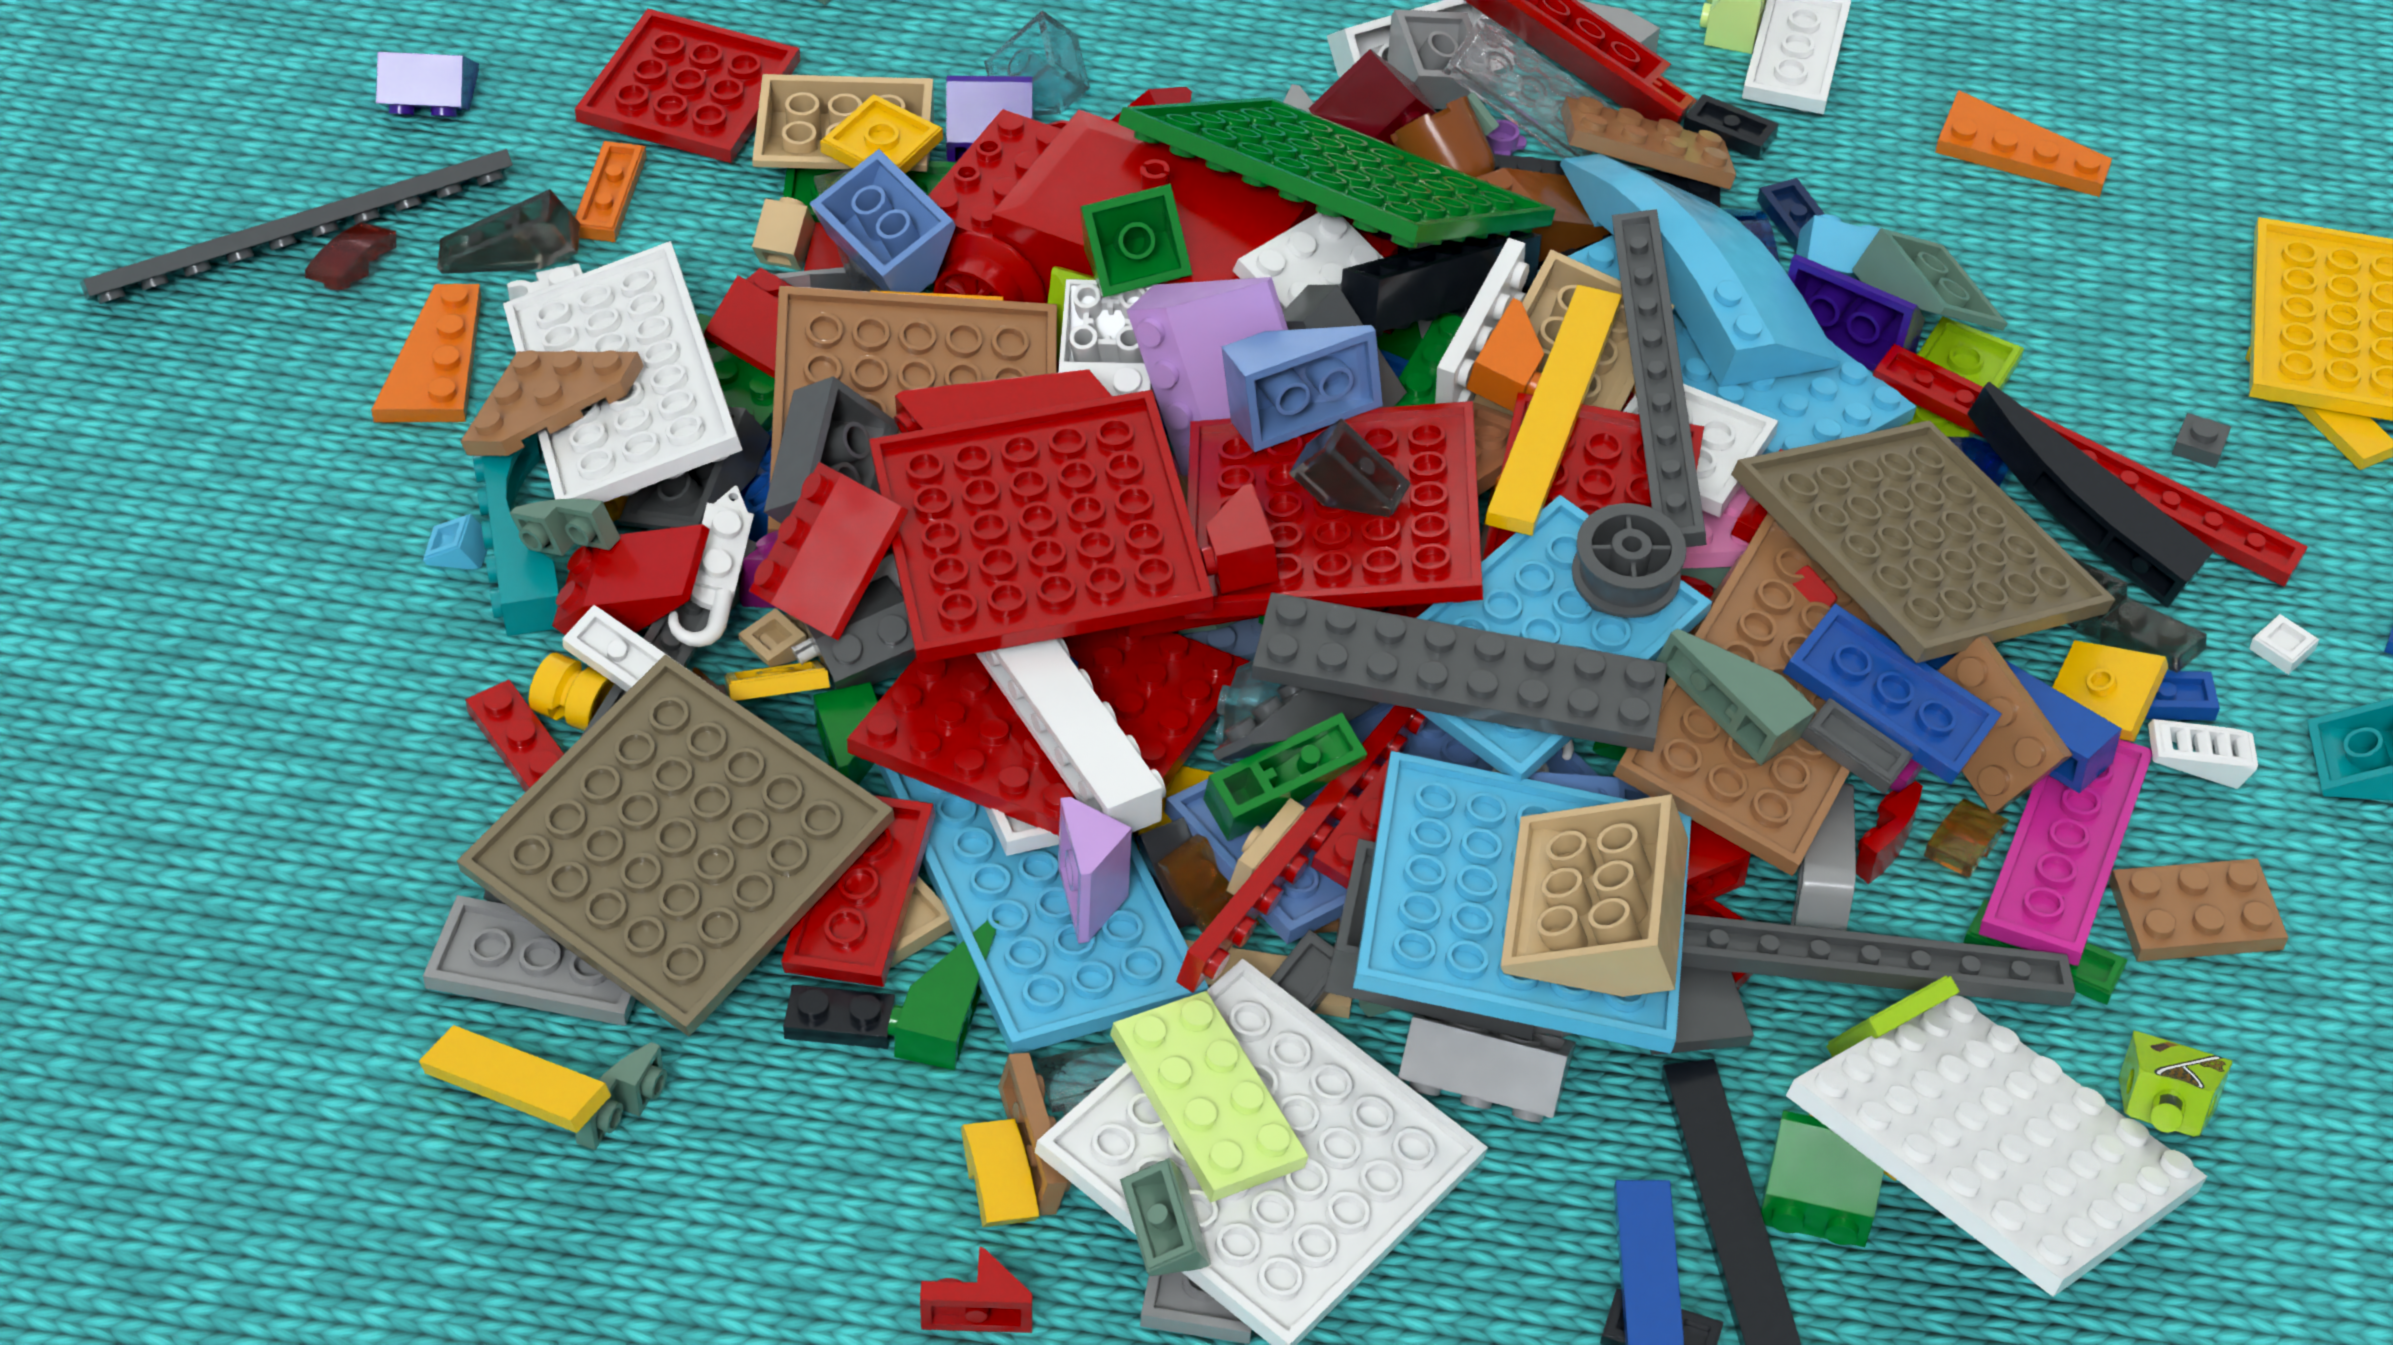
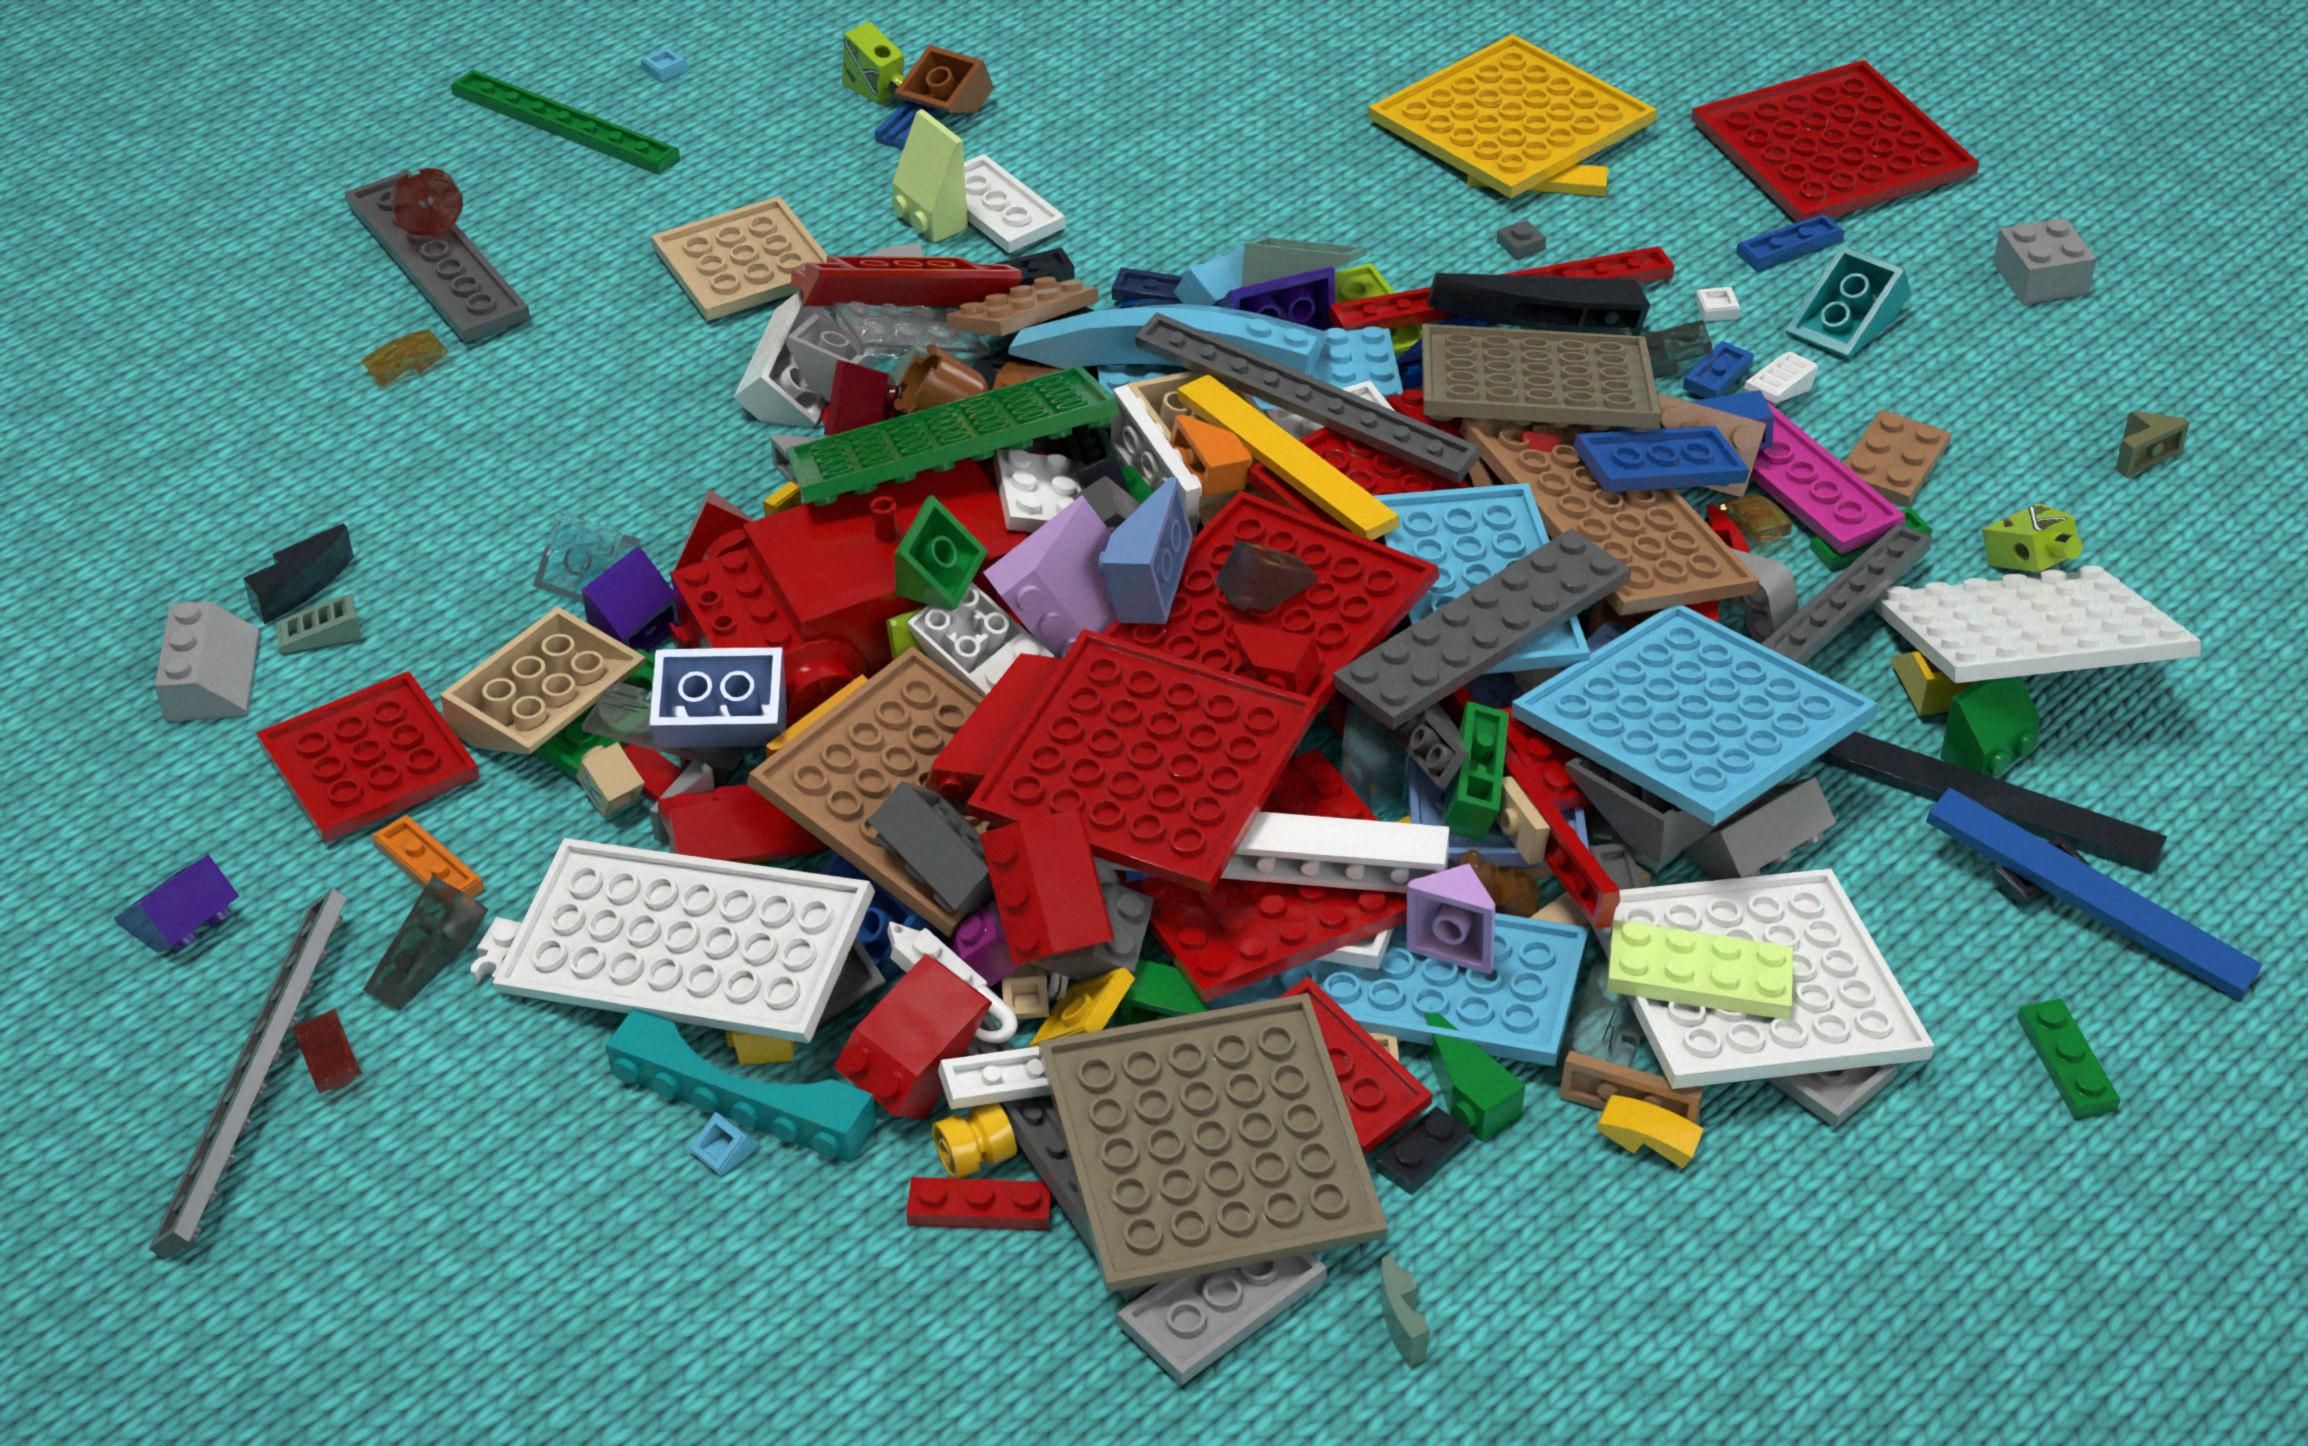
camera: 50 degrees left, 5 degrees down
(436, 361) = (510, 1063): orange wing -> none
(515, 1078) = (1341, 1361): yellow tile -> none
(547, 393) = (665, 987): medium nougat plate -> none
(561, 523) = (818, 1048): sand green slope -> none
(885, 127) = (602, 662): yellow plate -> none
(990, 1305) = (1755, 1194): red slope -> none
(1165, 1219) = (1795, 1044): sand green slope -> none
(1599, 897) = (1742, 665): tan slope -> none
(1628, 560) = (1477, 490): dark grey wheel -> none
(1739, 695) = (1621, 516): sand green slope -> none
(1857, 746) = (1686, 499): dark grey tile -> none
(1895, 1015) = (1890, 622): lime tile -> none
(2014, 145) = (1188, 167): orange wing -> none
(2112, 683) = (1698, 377): yellow plate -> none

